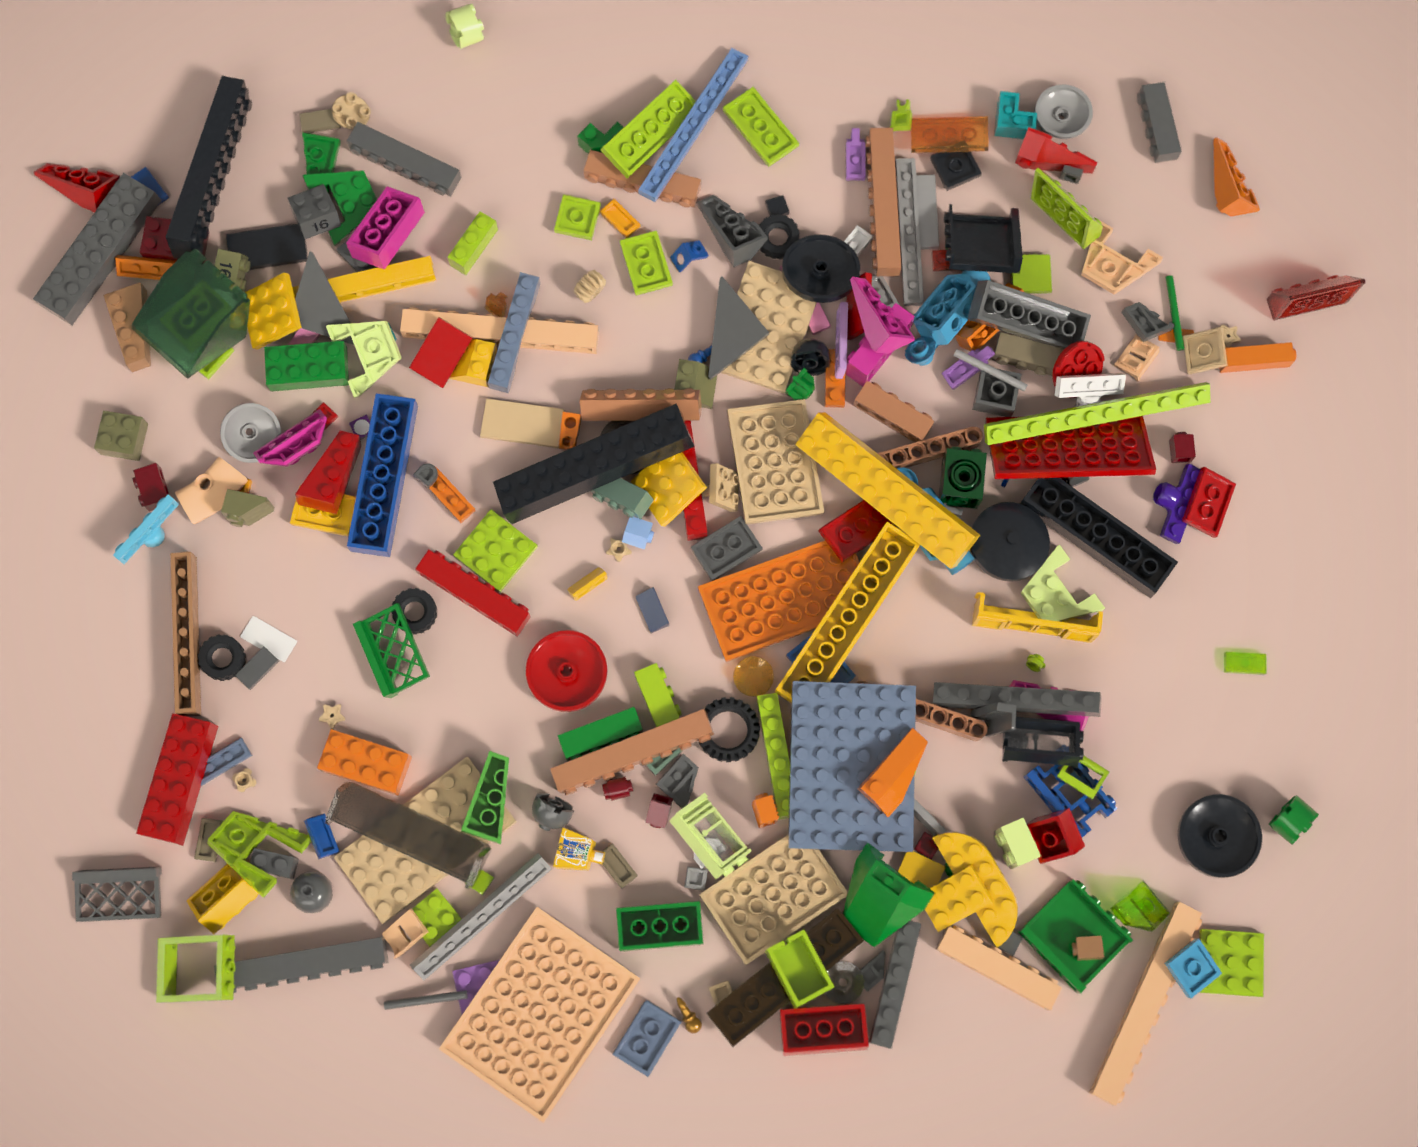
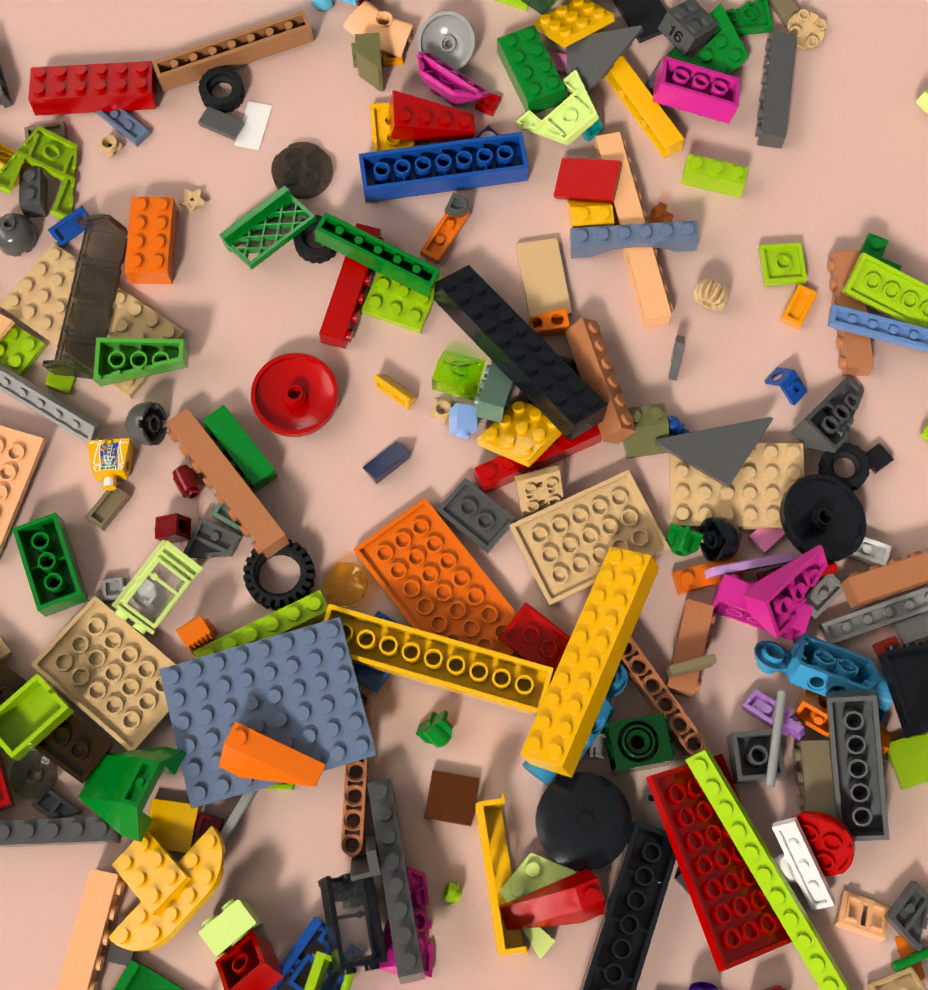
camera: 75 degrees right, 5 degrees down
(335, 605) = (303, 170): none -> clear smoke tile
(460, 557) = (376, 254): none -> green brick
(589, 525) = (457, 374): none -> clear neon green slope
(635, 334) = (676, 357): none -> dark grey tile
(646, 263) = (760, 344): lime plate -> none
(657, 694) = (295, 492): lime brick -> none
(901, 636) = (436, 729): none -> green piece
(913, 414) = (691, 666): none -> dark tan tile
(960, 641) = (451, 798): none -> reddish brown tile
(1068, 579) = (560, 903): none -> red wedge

